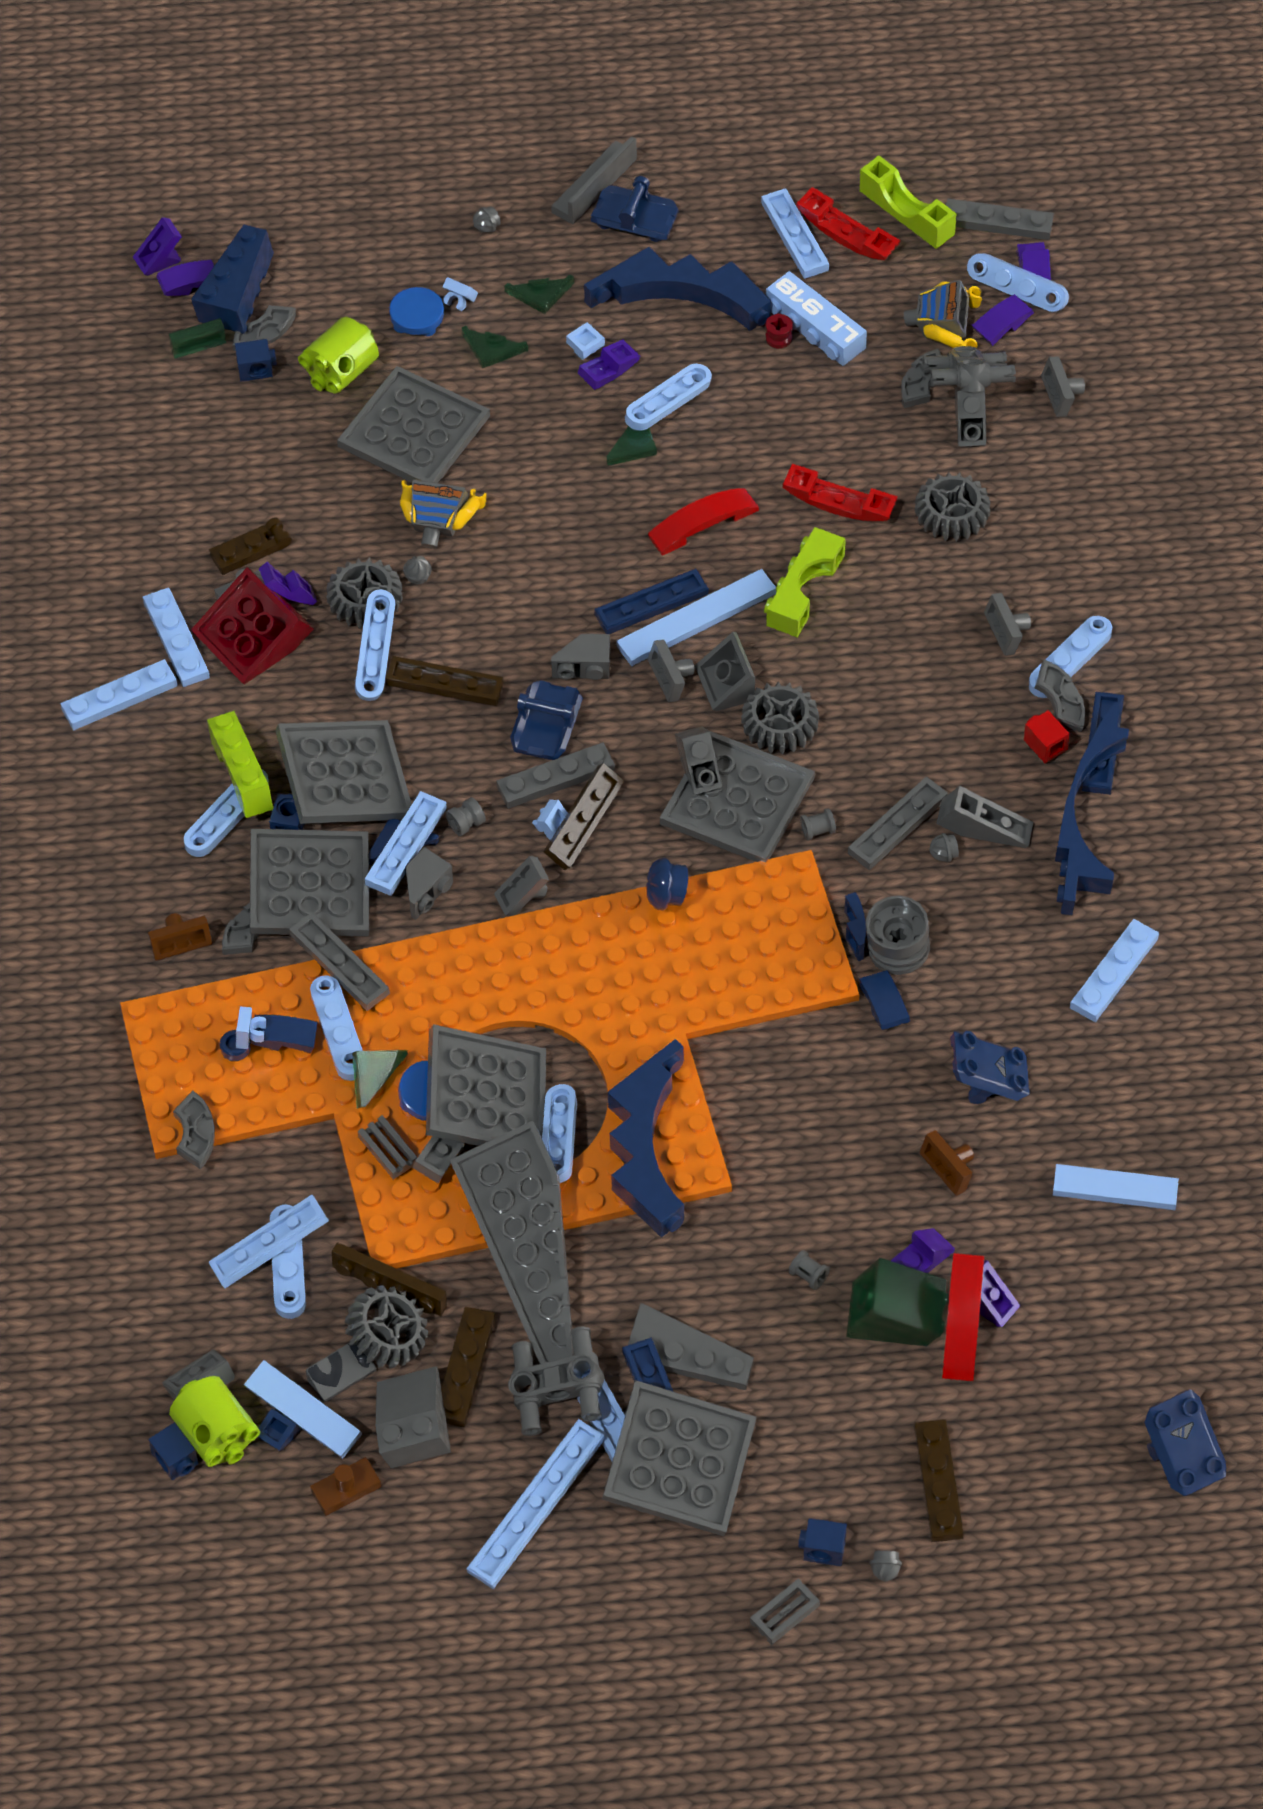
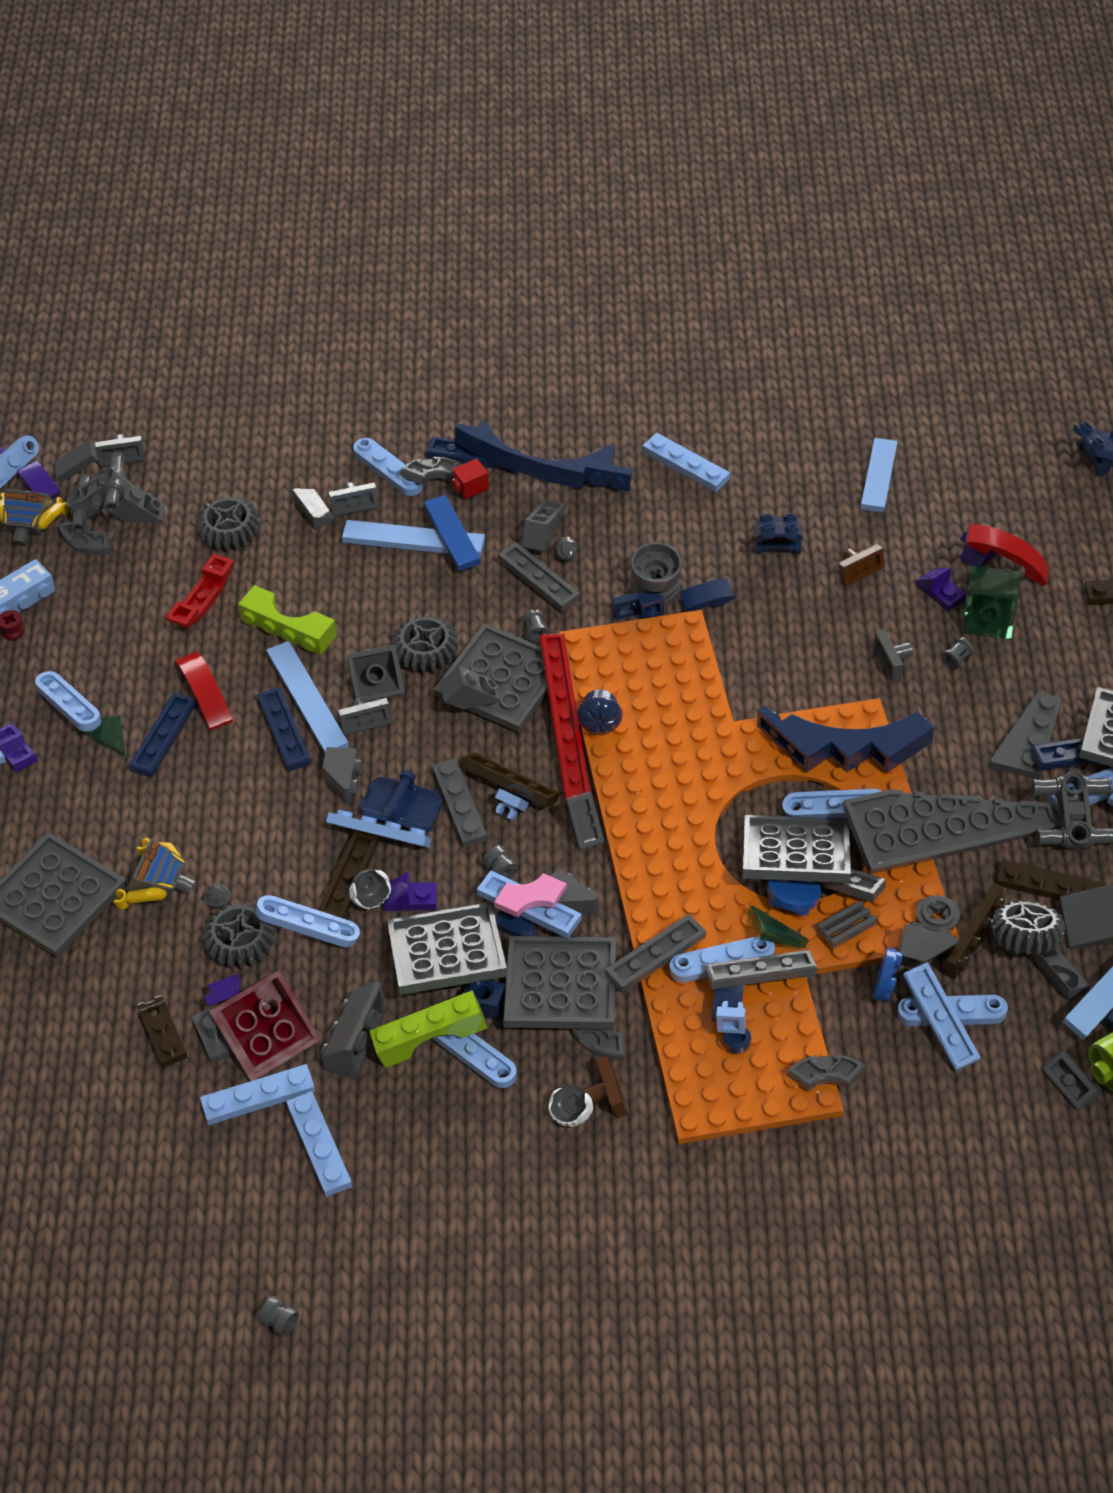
camera: 85 degrees left, 5 degrees down
(155, 901) = (570, 1105): none -> dark grey hair
(255, 707) = (351, 1034): none -> dark grey slope
(318, 1060) = (760, 969): none -> dark grey tile
(319, 1182) = (886, 978): none -> blue tile
(357, 1217) = (923, 945): none -> dark grey slope
(402, 1224) = (938, 904): none -> dark grey gear
(403, 827) = (542, 892): none -> bright pink tile
(421, 696) = (370, 888): none -> dark grey hair
(425, 743) = (411, 896): none -> dark purple slope
(505, 700) = (390, 830): none -> light blue plate
(633, 492) = (162, 735): none -> dark blue tile
(696, 855) = (564, 715): none -> red tile
(800, 1195) = (891, 655): none -> dark grey tile
(952, 694) = (401, 537): none -> light blue tile
(955, 726) = (452, 533): none -> blue tile
(998, 579) = (312, 507): none -> dark grey slope
(1034, 345) = (75, 460): none -> dark grey tile

